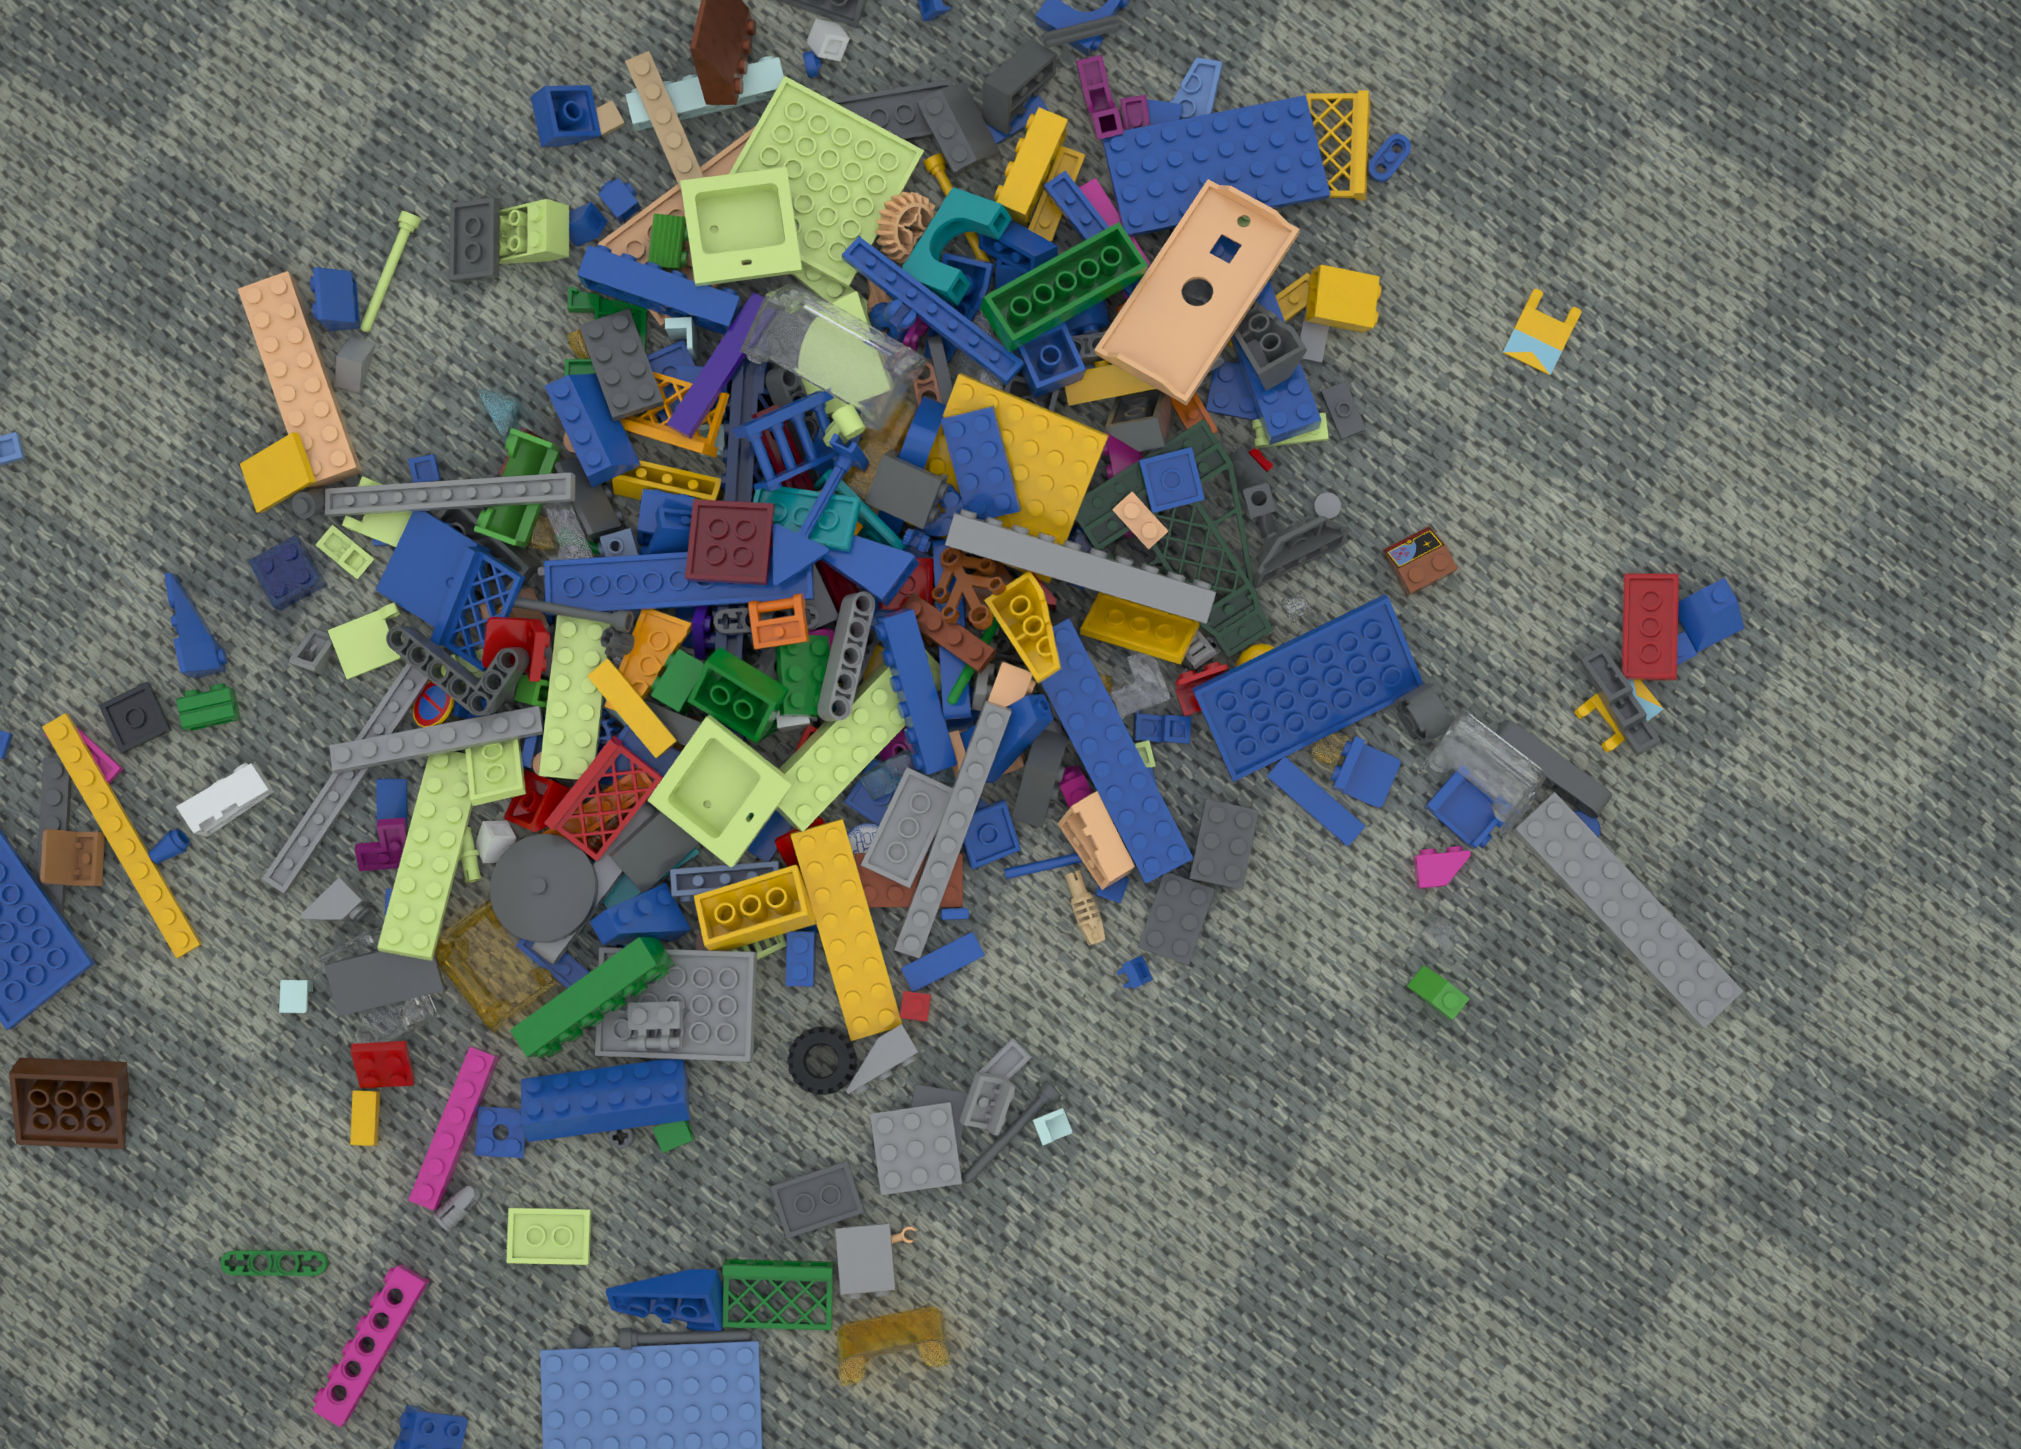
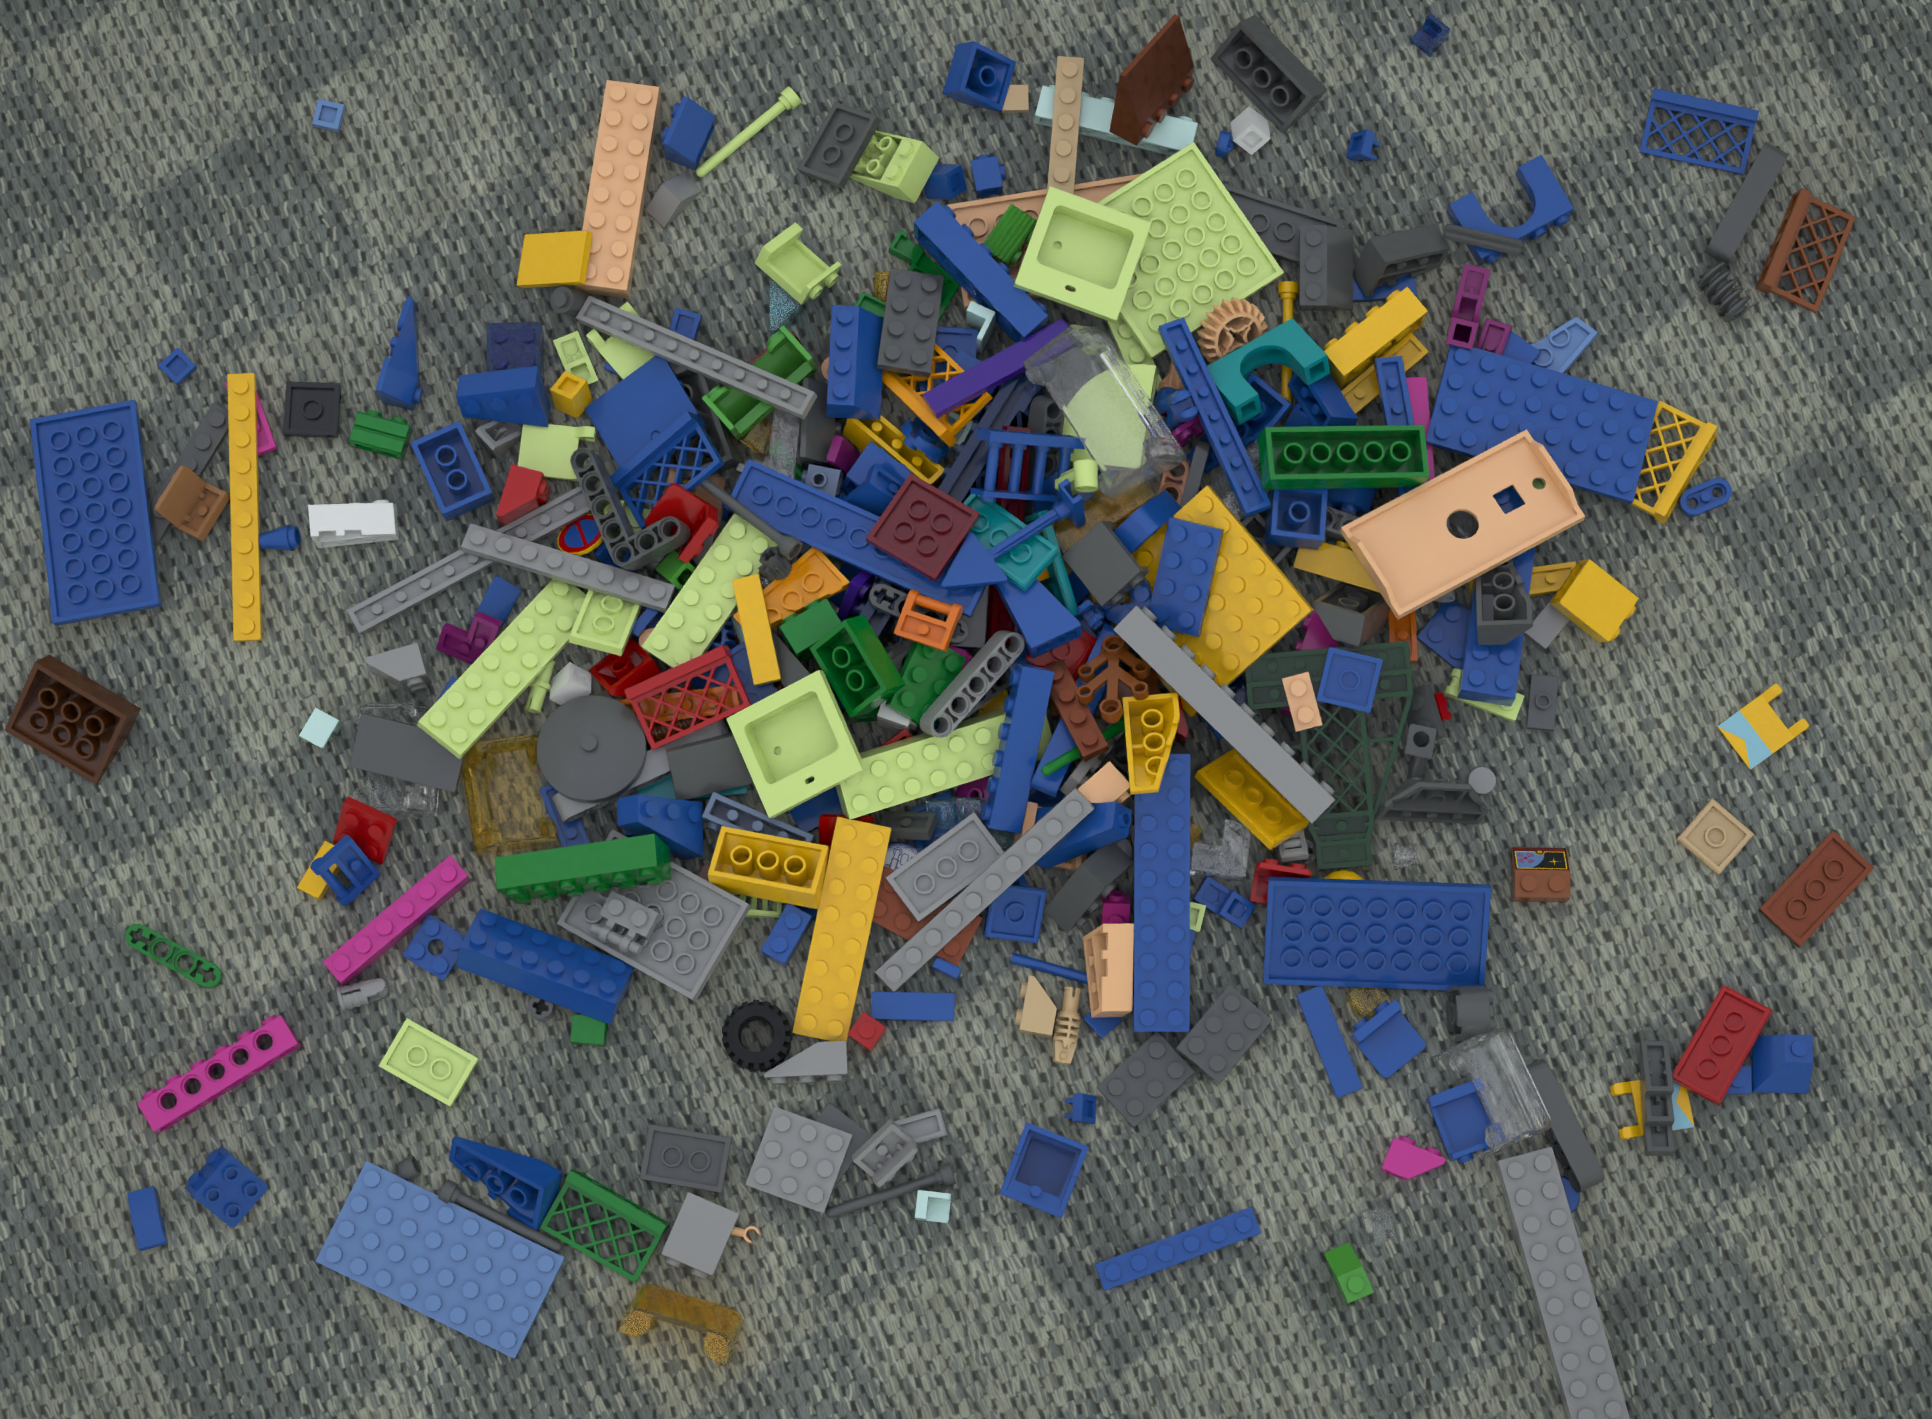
camera: 25 degrees right, 5 degrees down
(289, 707) = (452, 471): none -> blue brick
(299, 617) = (505, 396): none -> blue wedge
(357, 584) = (571, 394): none -> yellow panel
(360, 696) = (522, 493): none -> red slope
(388, 1100) = (352, 864): none -> blue plate
(494, 367) = (796, 266): none -> yellowish green panel
(624, 513) = (842, 454): none -> magenta tile
(689, 462) = (921, 437): none -> blue plate
(856, 807) = (909, 825): none -> dark grey hinge
(1053, 909) = (1038, 1010): none -> tan slope
(1133, 1046) = (1044, 1170): none -> blue piece
(1281, 1049) = (1177, 1248): none -> blue plate
(1550, 449) = (1715, 837): none -> tan tile
(1659, 449) = (1815, 889): none -> copper plate

